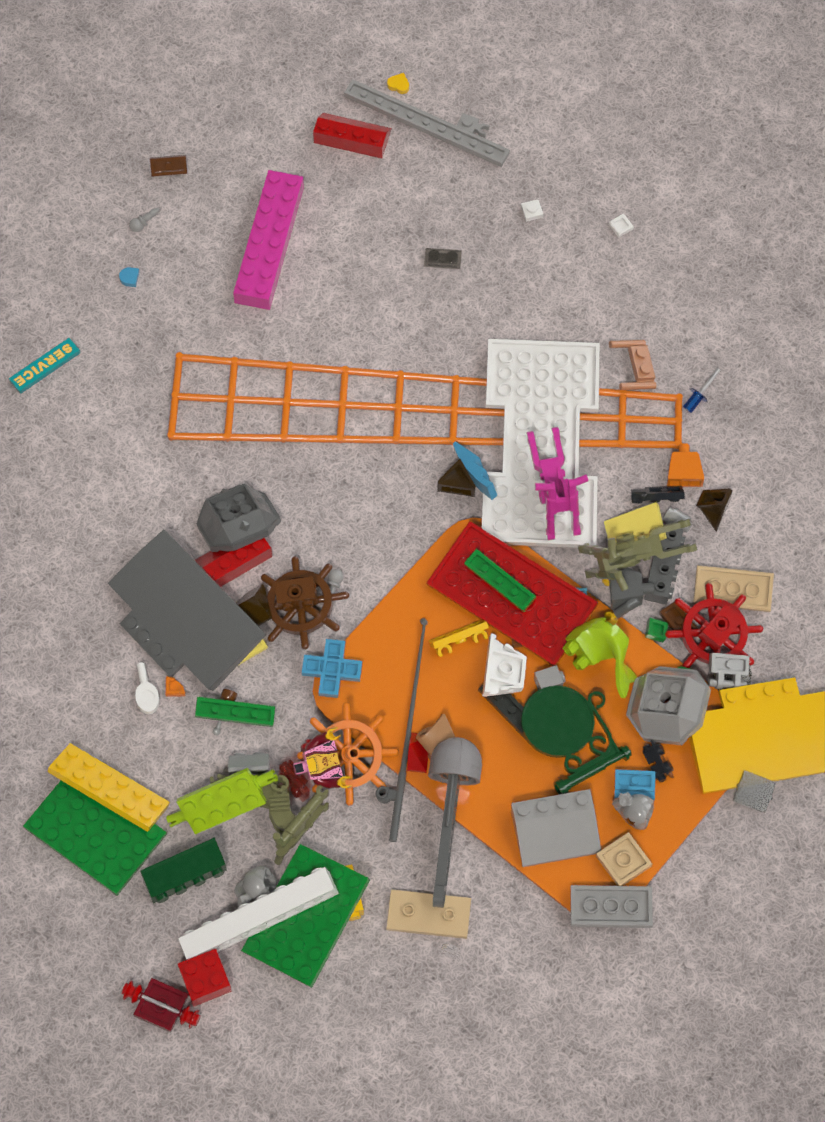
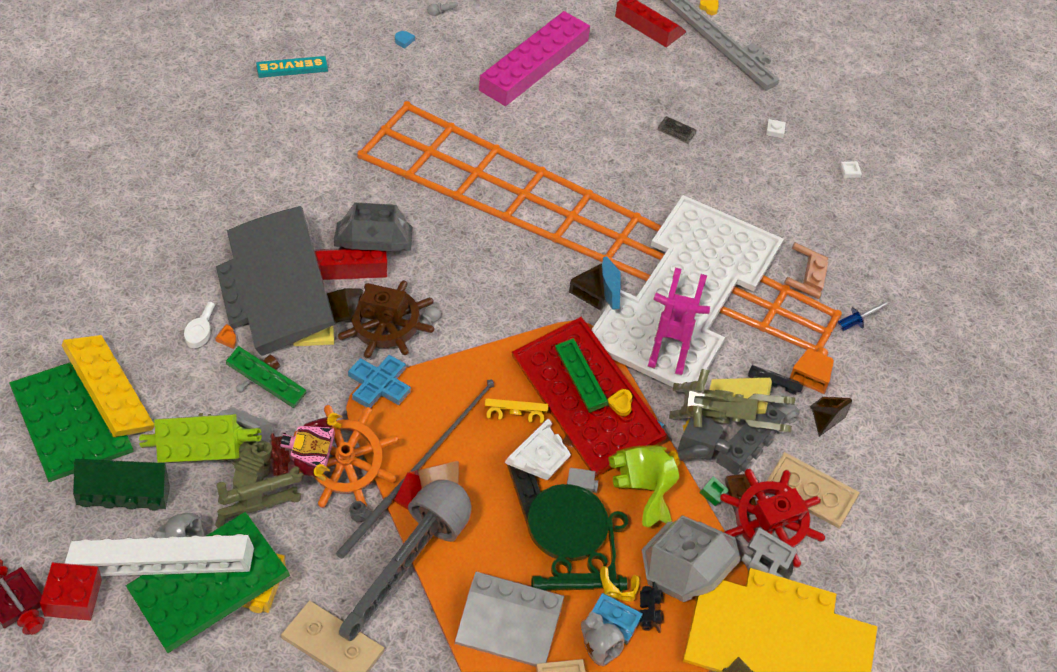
camera: 20 degrees right, 15 degrees down
(545, 590) = (621, 402): none -> yellow tile
(620, 763) = (613, 592): none -> yellow cap

